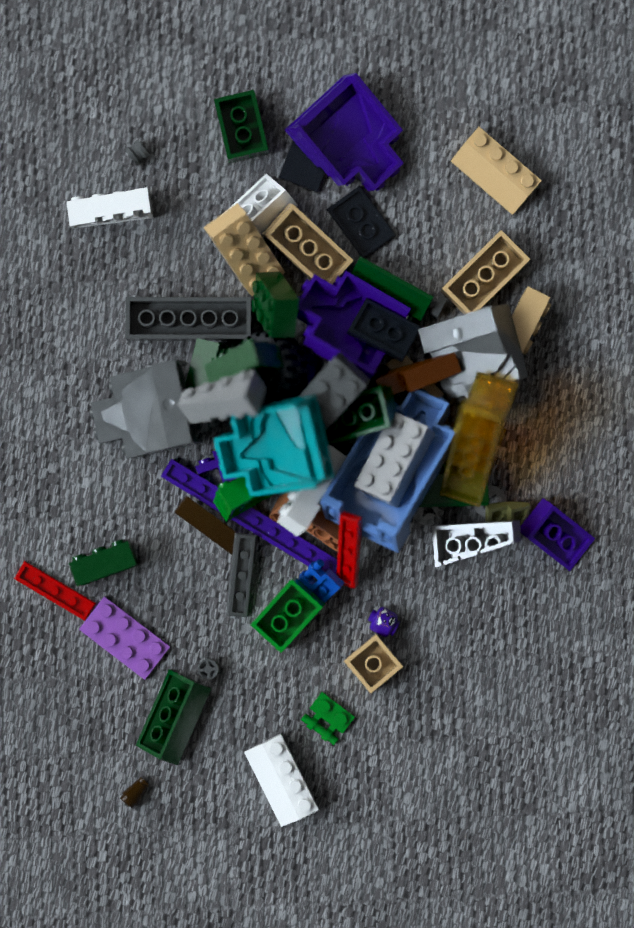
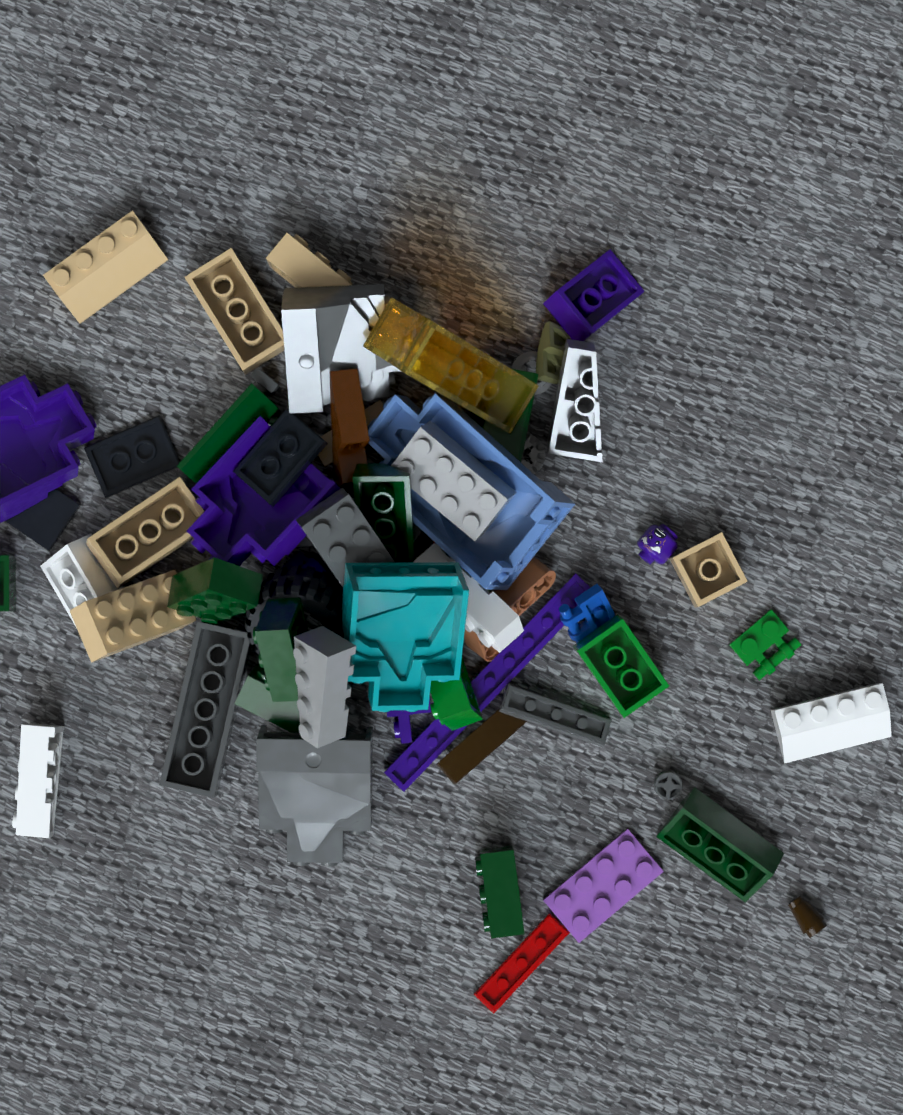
camera: 75 degrees left, 0 degrees up
(349, 549) = (555, 566): red tile -> none

